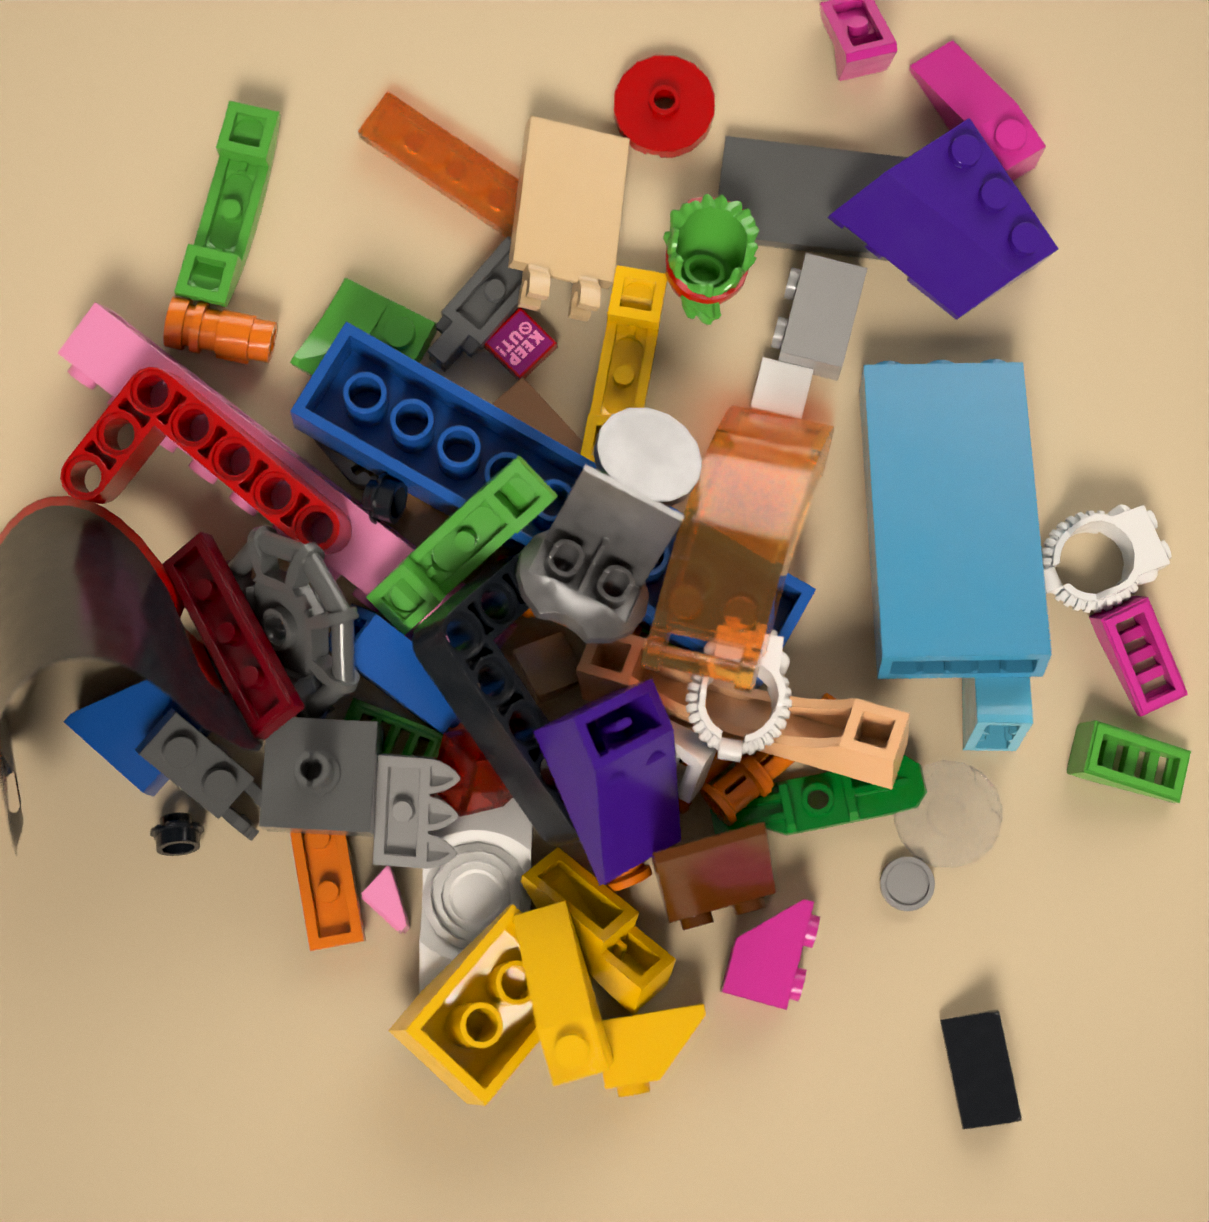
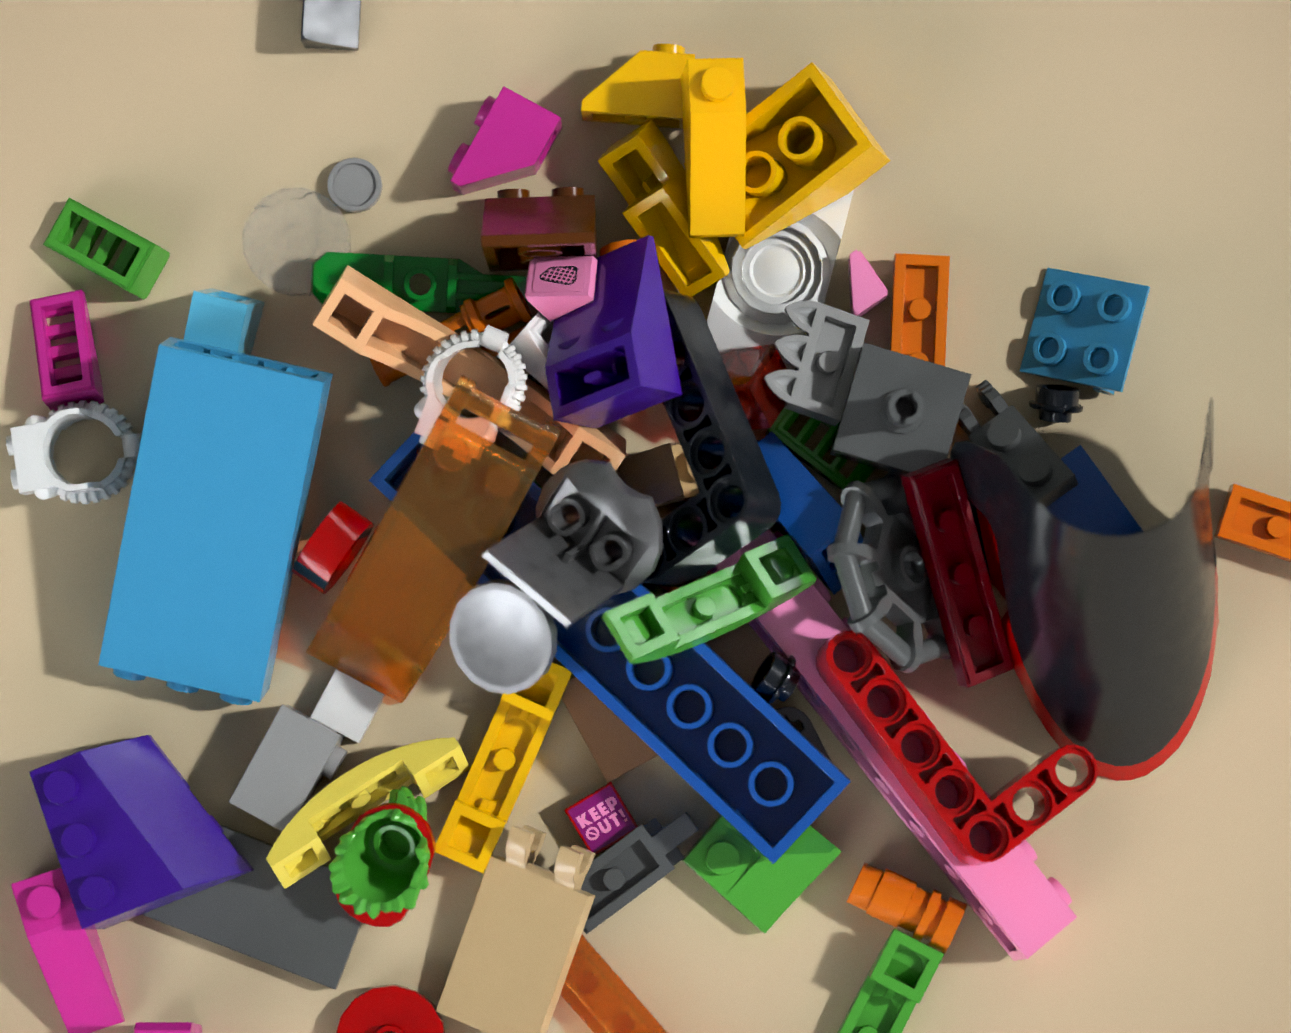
camera: 170 degrees left, 5 degrees up
(163, 911) = (1085, 330): none -> dark azure hinge
(678, 817) = (560, 284): none -> bright pink slope
(789, 250) = (425, 763): none -> light yellow slope
(834, 524) = (332, 547): none -> red piece

